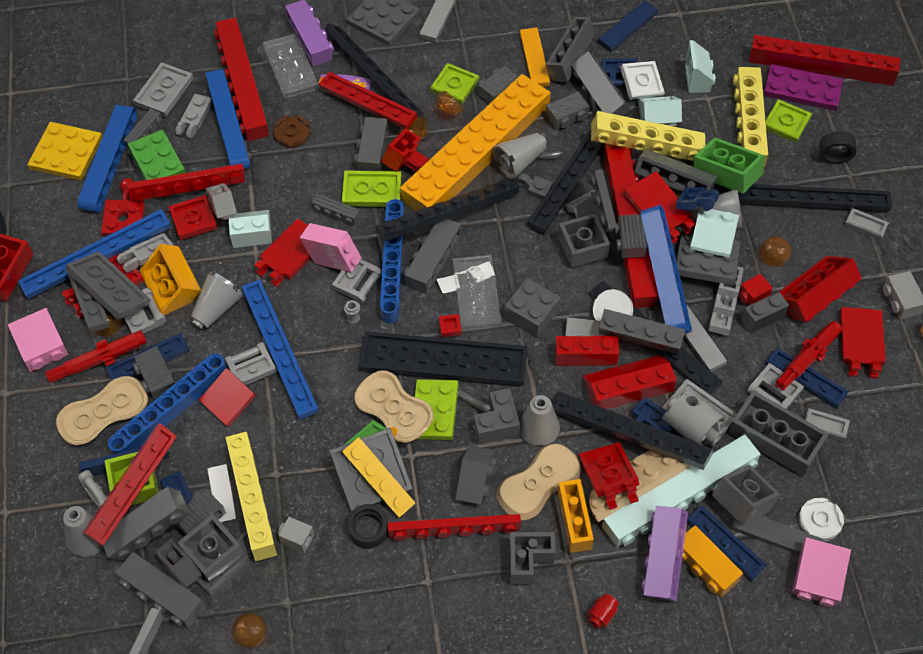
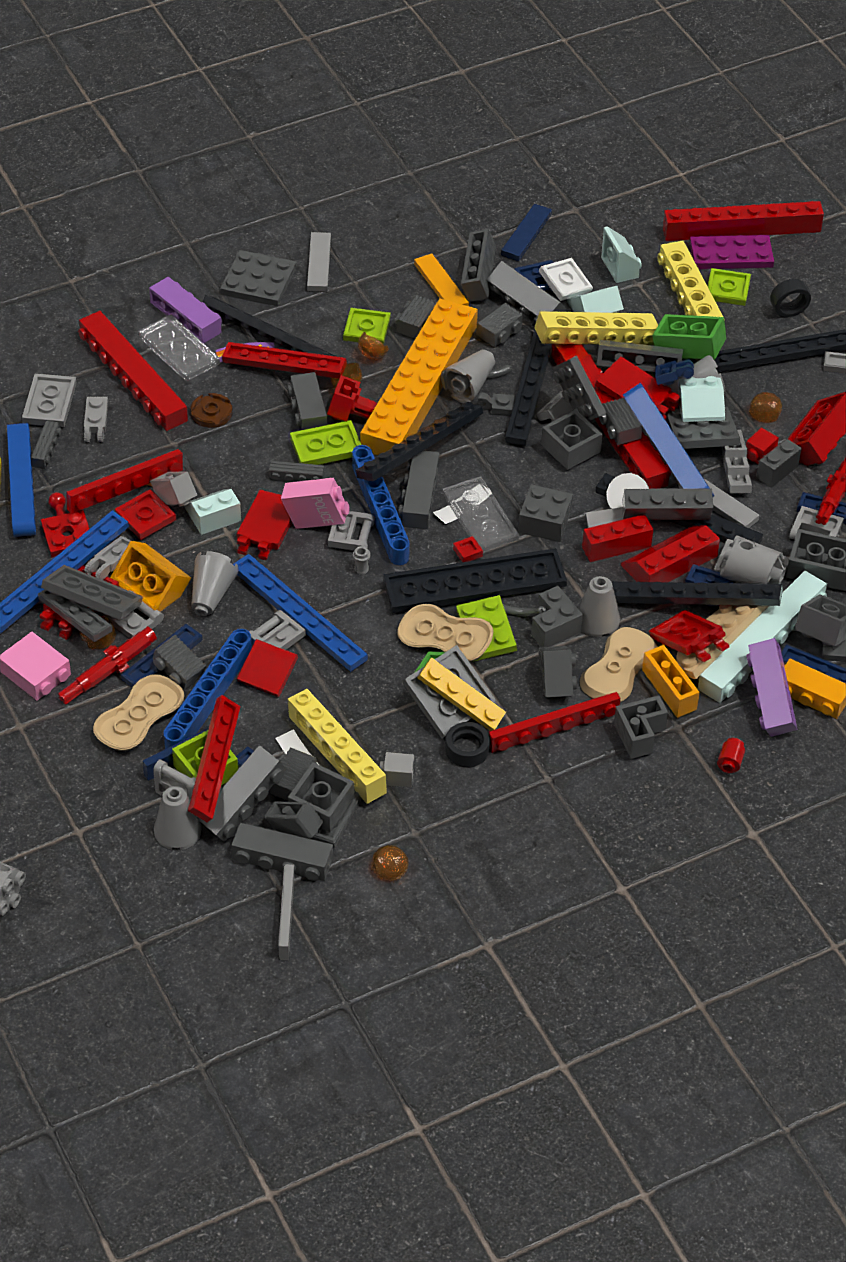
camera: 20 degrees left, 10 degrees down
(155, 156) = (76, 464): bright green brick -> none
(227, 118) = (135, 411): blue beam -> none

